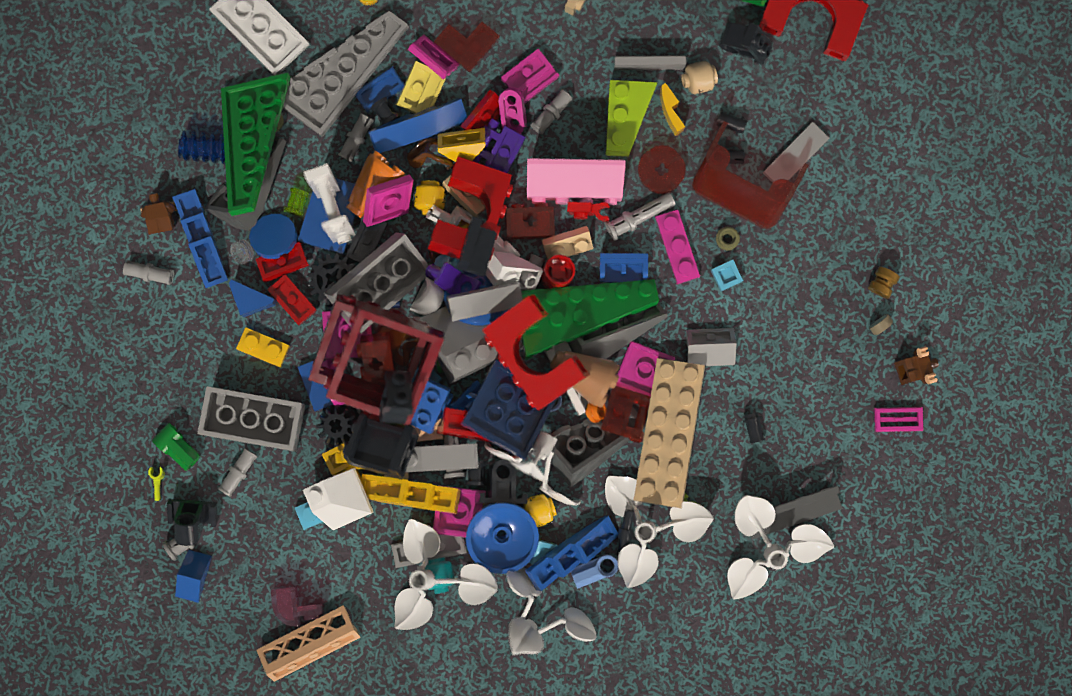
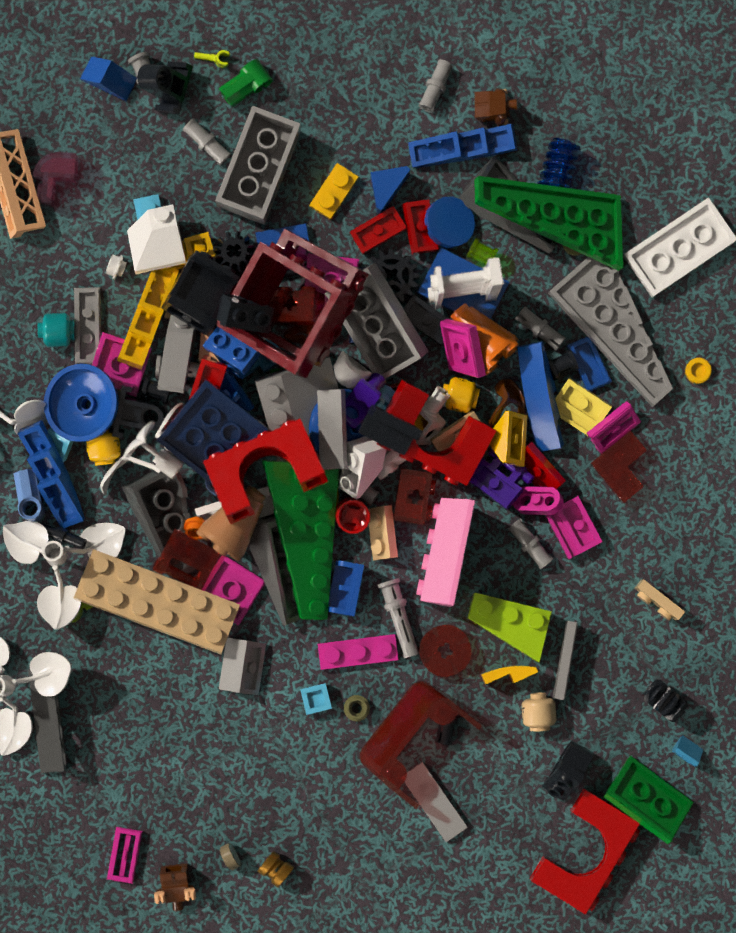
camera: 100 degrees right, 0 degrees up
(241, 251) = (439, 186): clear tile -> none
(368, 533) = (116, 266): none -> white plate
(411, 607) = (31, 296): white plant -> none
(582, 210) = (415, 555): red plate -> none
(734, 123) = (482, 738): black pin -> none
(754, 427) = (146, 695): black pin -> none

